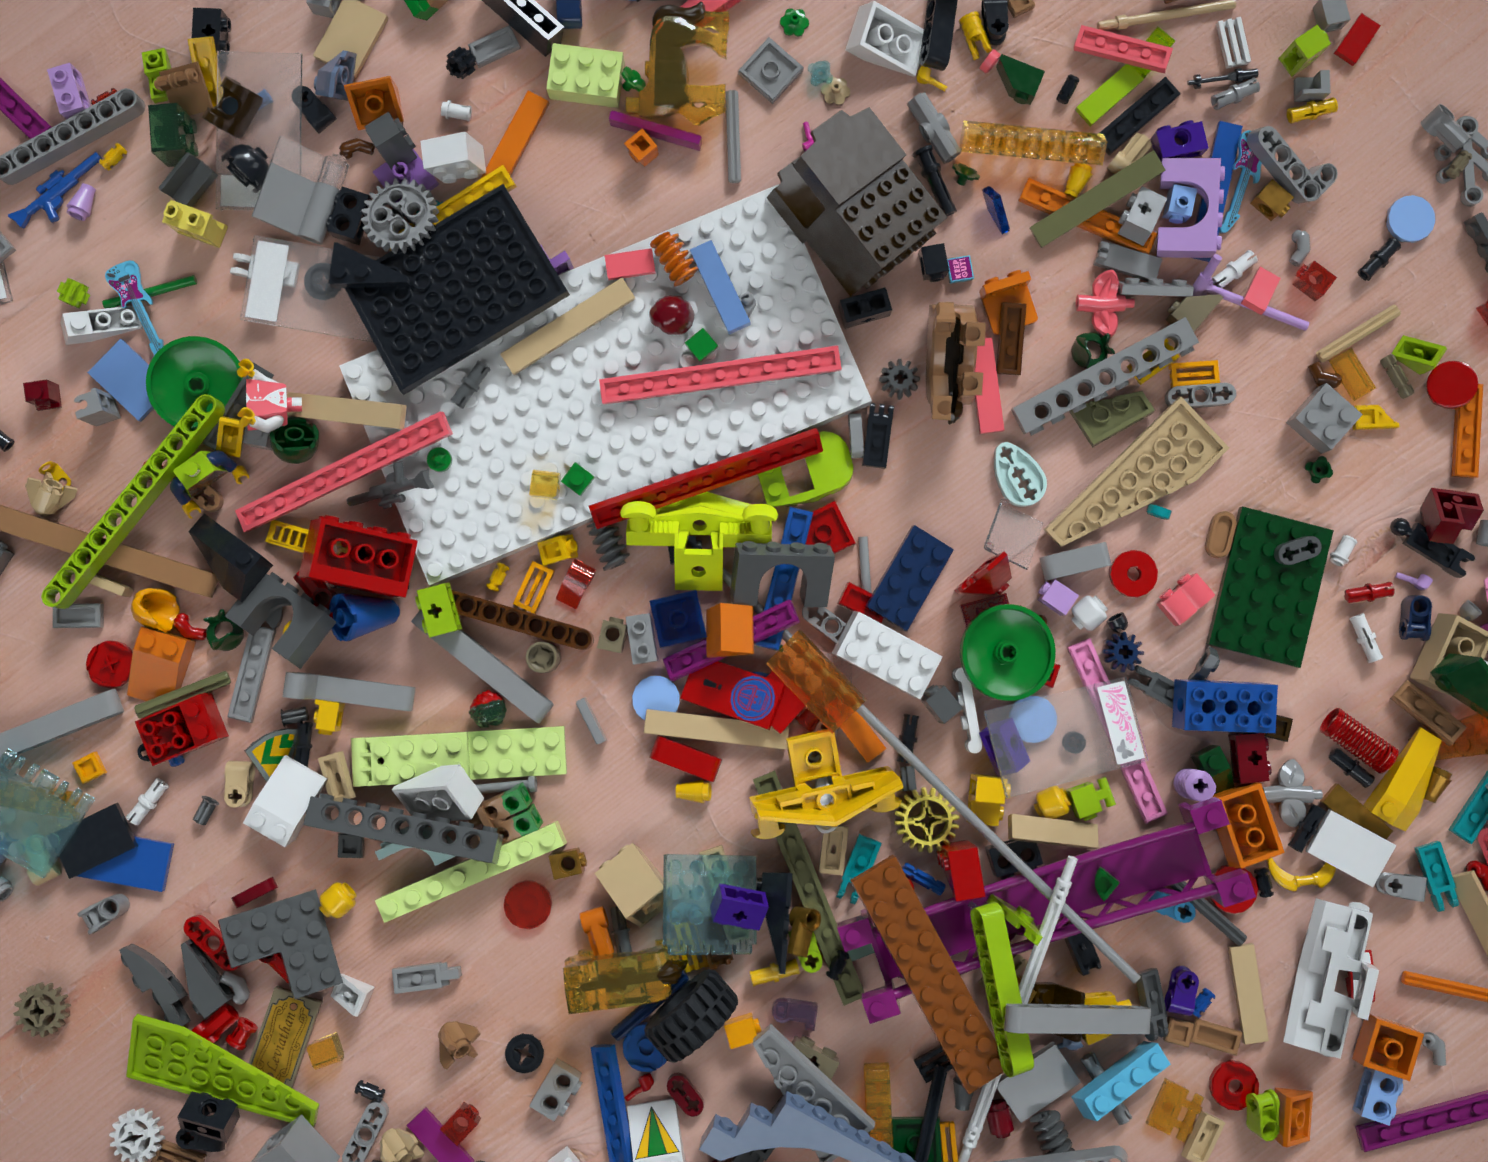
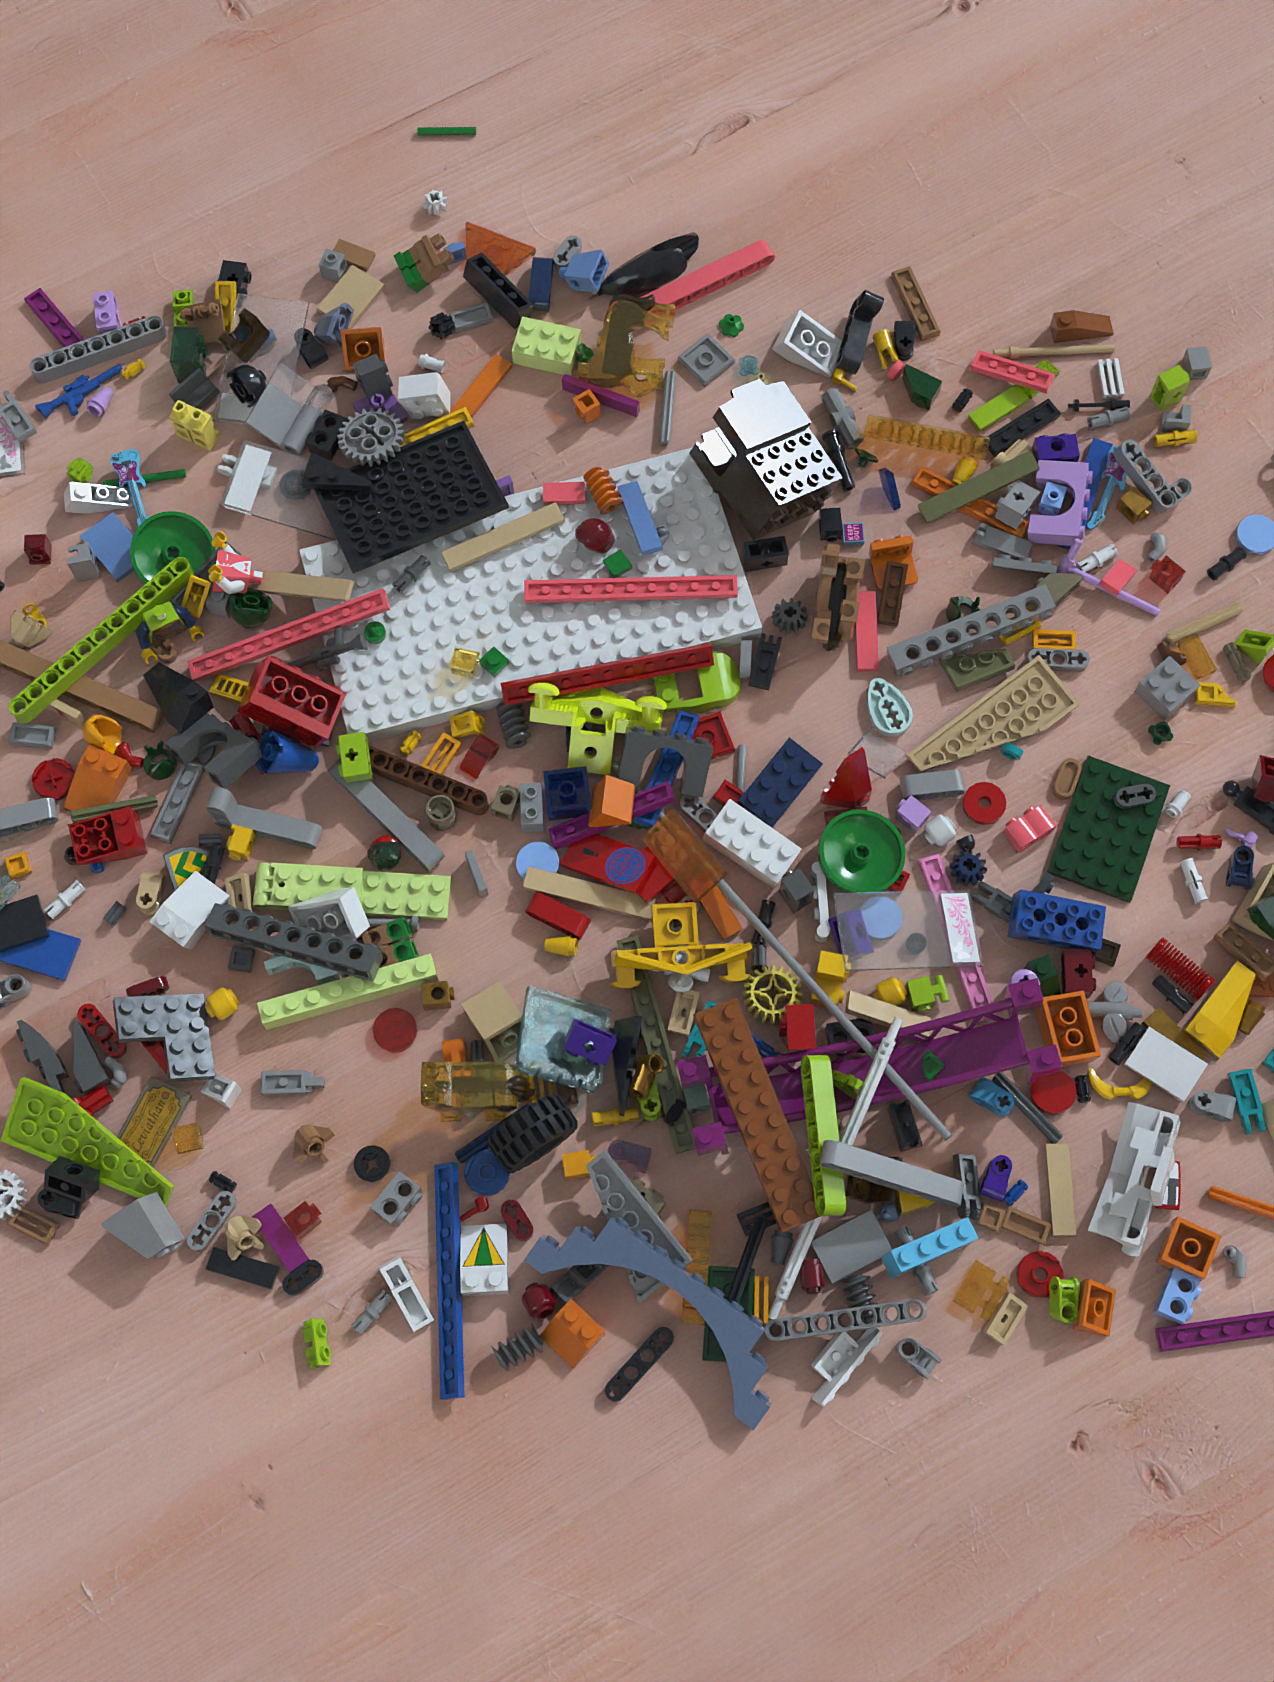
camera: 10 degrees right, 15 degrees down
(241, 1033) = (113, 1114): red bush -> none
(1104, 303) = (978, 573): coral plant -> none
(1357, 39) = (1219, 386): red tile -> none

